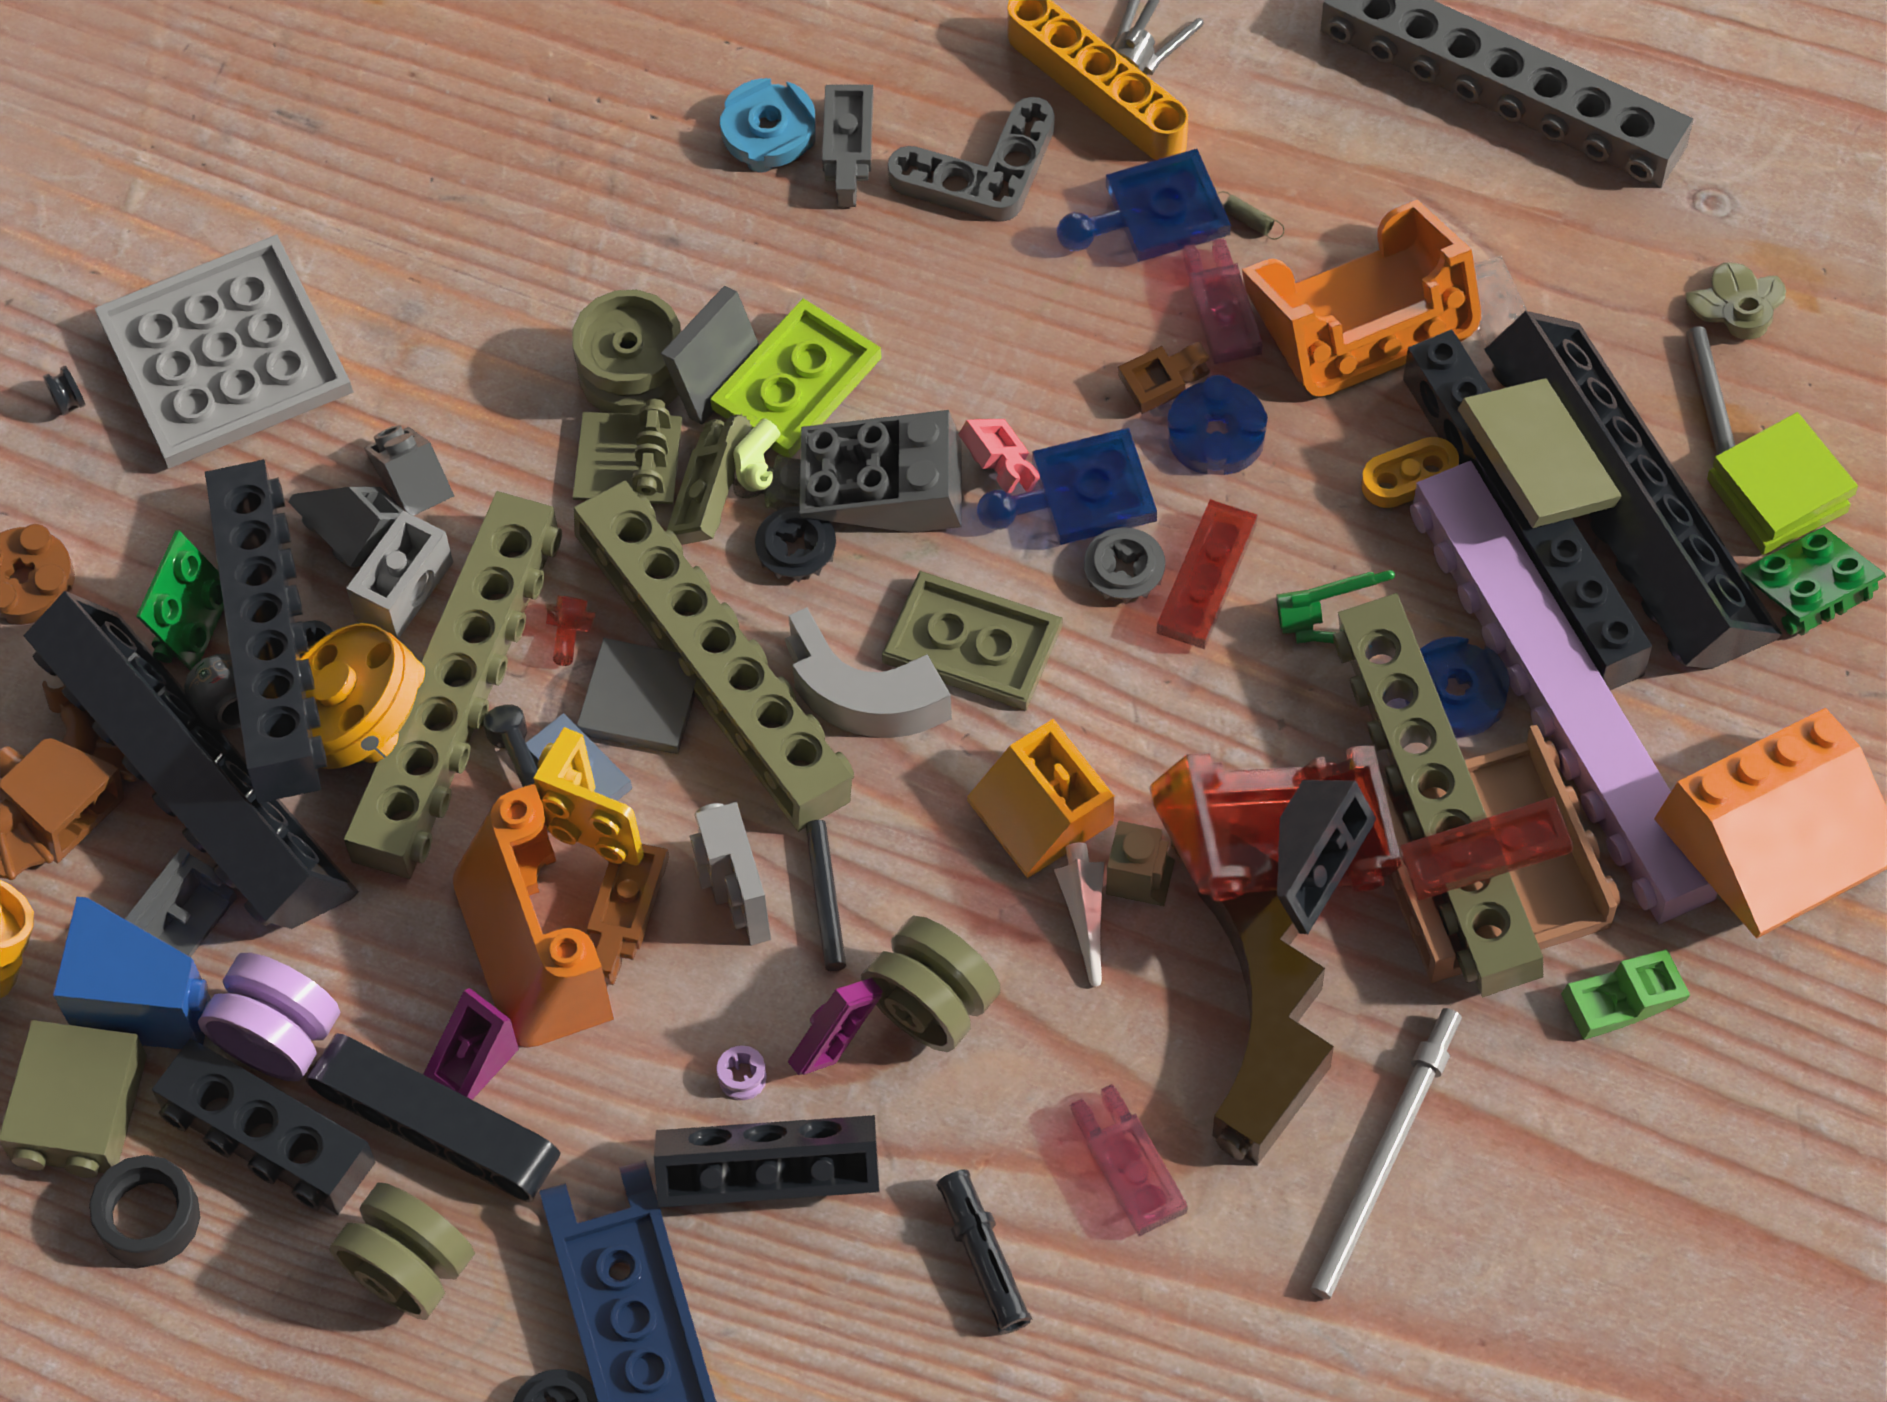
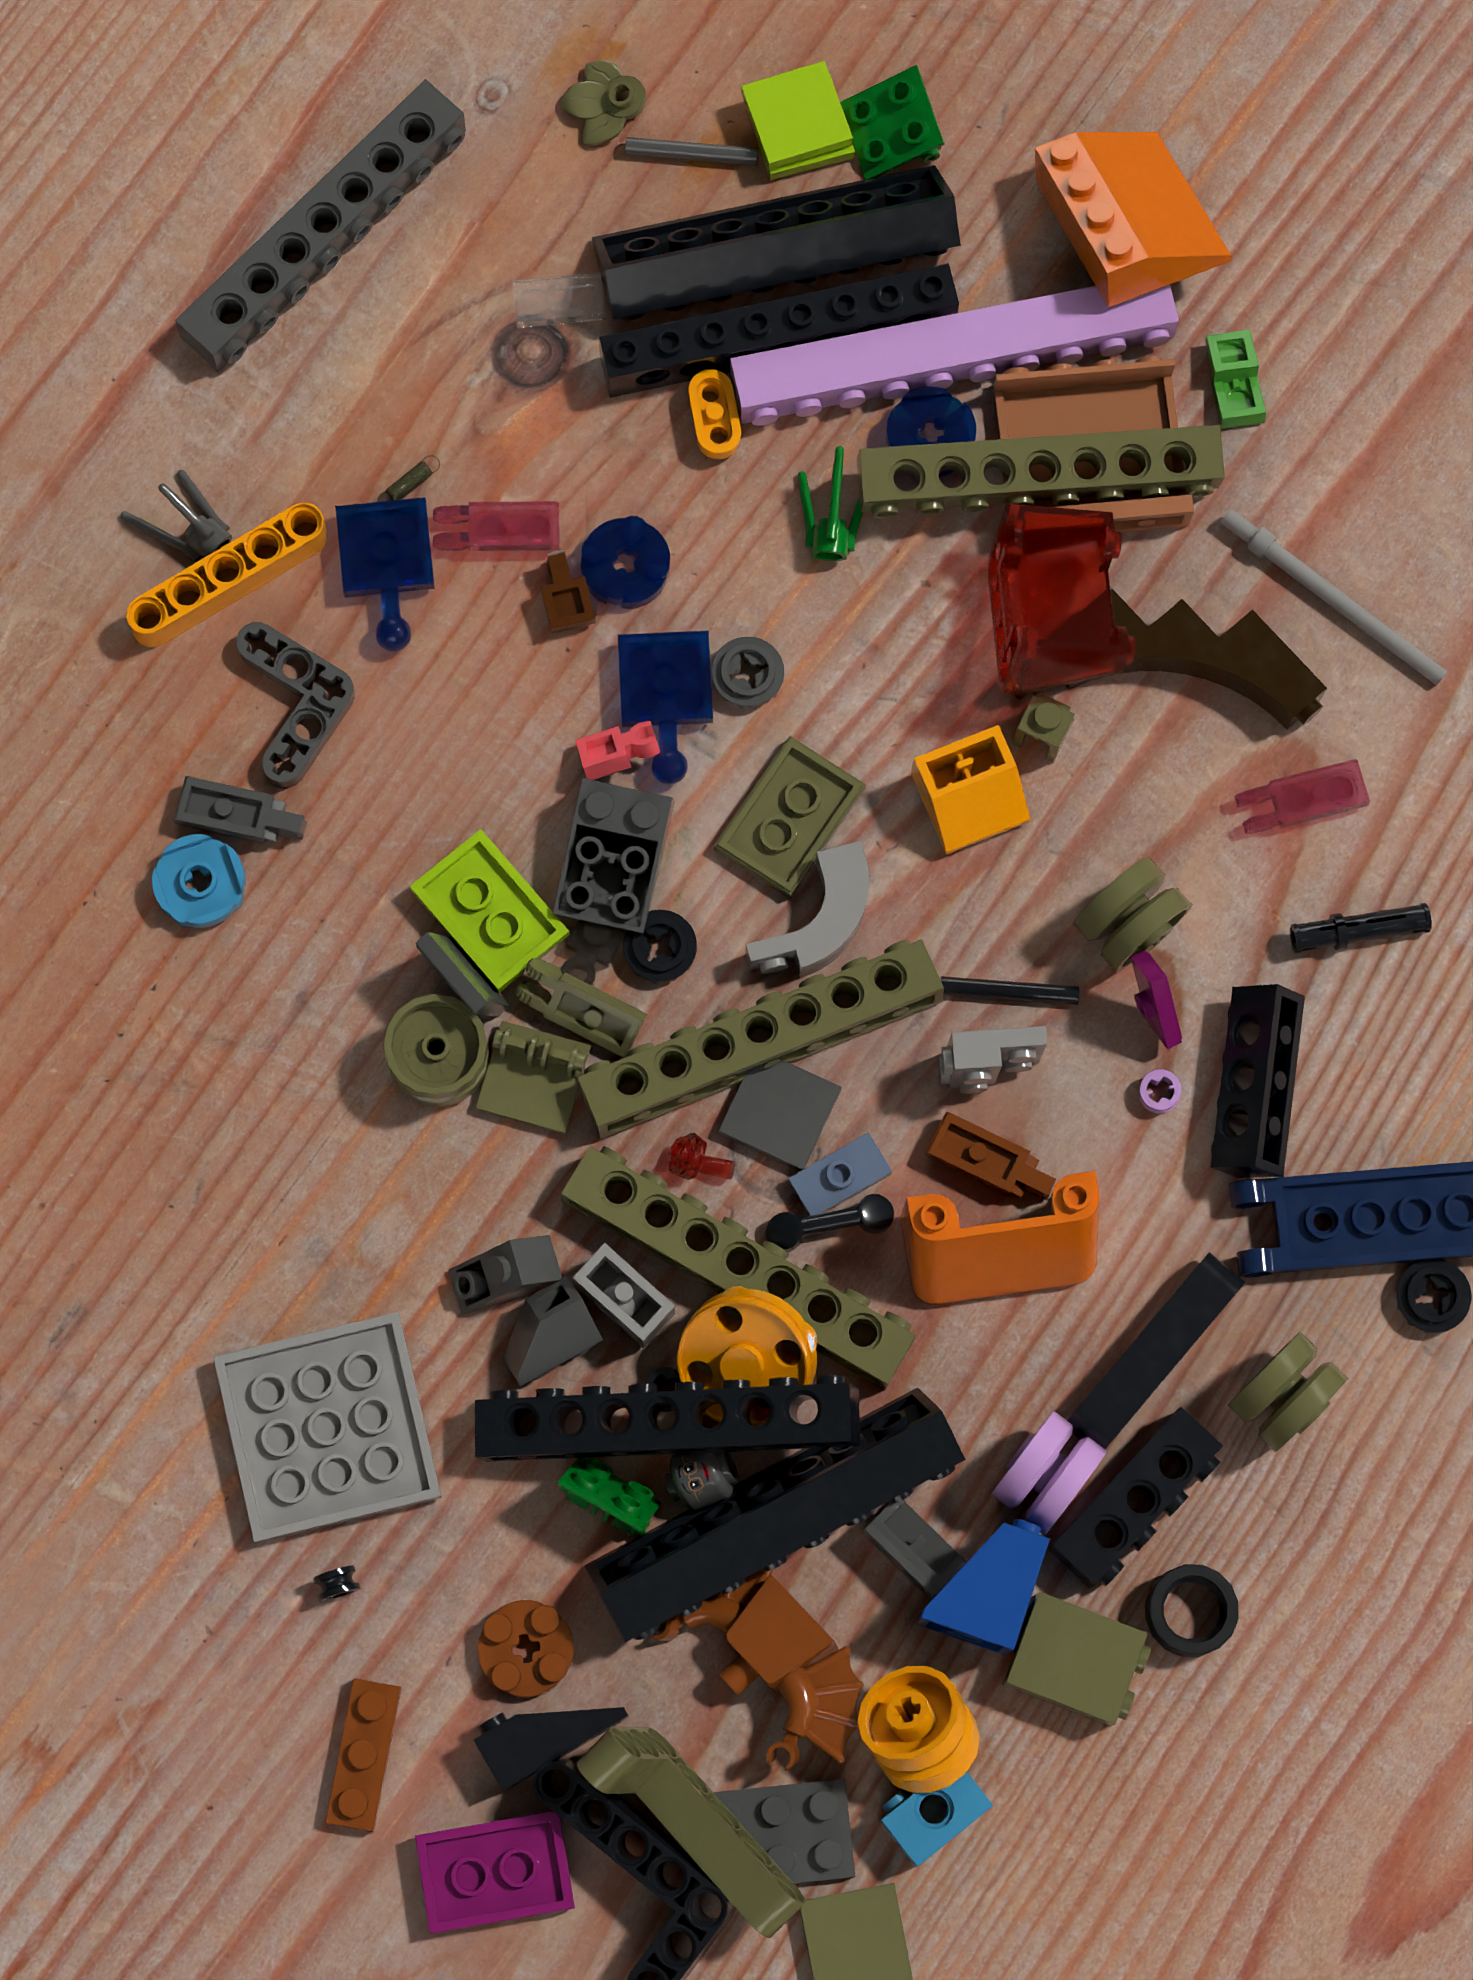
camera: 85 degrees left, 15 degrees up
(472, 1046) = (1101, 1312): magenta slope -> none
(576, 811) = (887, 1181): yellow bracket -> none
(749, 456) = (573, 964): yellowish green arm -> none
(1082, 889) = (1055, 778): white piece -> none
(1207, 574) = (775, 605): clear red plate -> none
(1317, 844) = (1079, 567): black slope -> none
(1371, 309) = (534, 400): orange windscreen -> none
(1486, 848) = (1123, 439): clear red plate -> none
(1539, 452) = (750, 297): tile -> none

